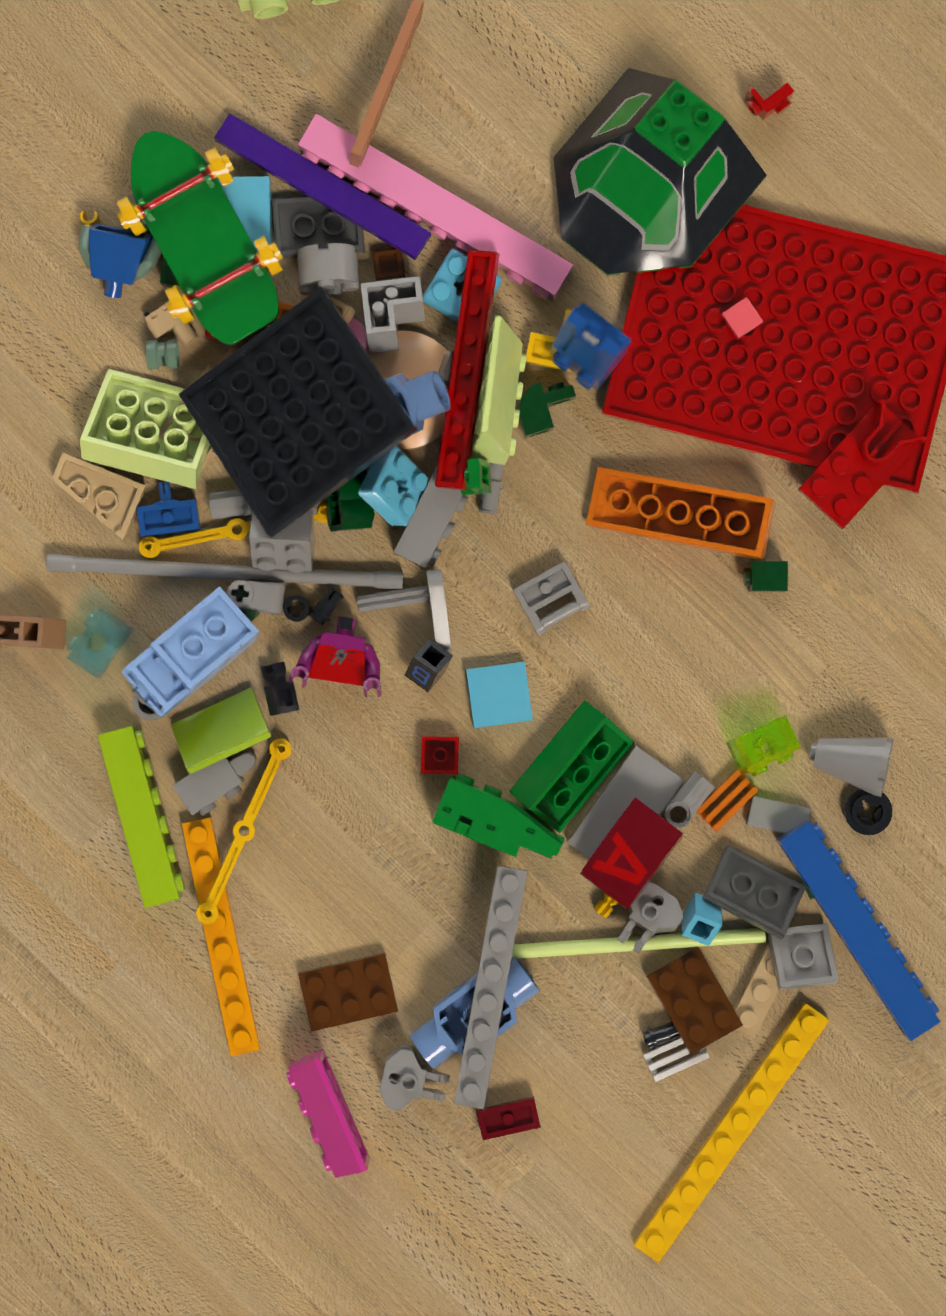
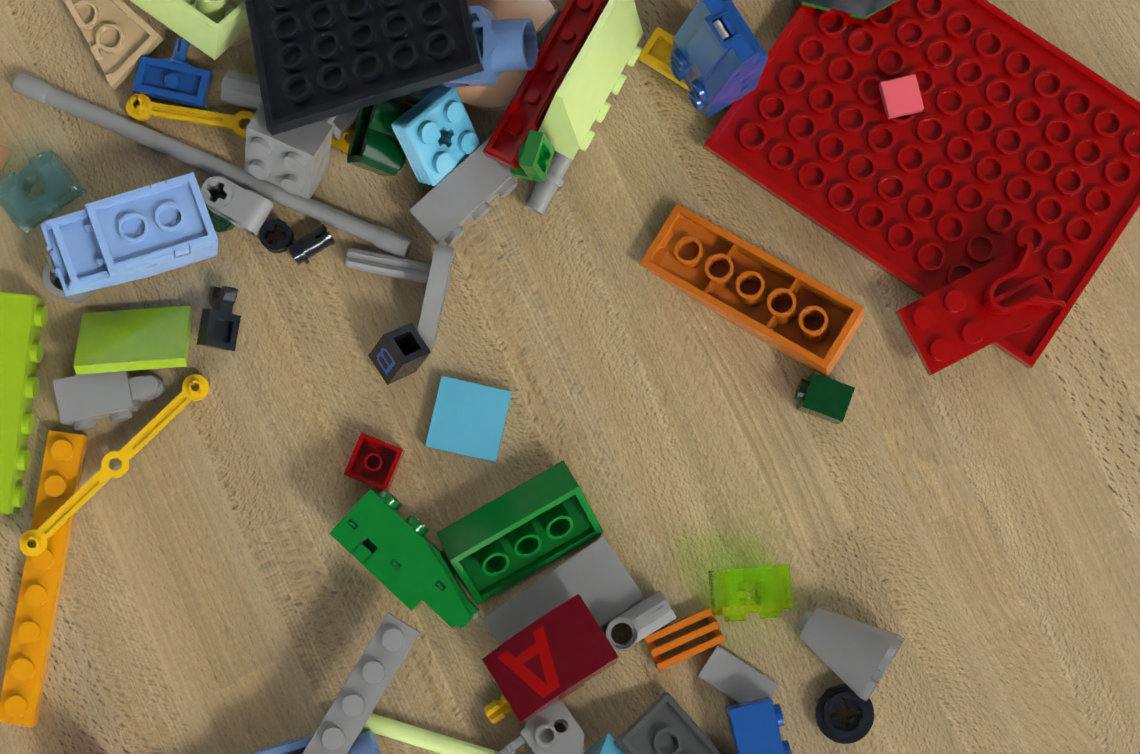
camera: 15 degrees right, 5 degrees down
(340, 659) = (301, 309): torso -> none
(348, 992) = (162, 698): reddish brown plate -> none
(534, 405) = (631, 109): dark green brick -> none
(546, 589) = (569, 319): light grey plate -> none

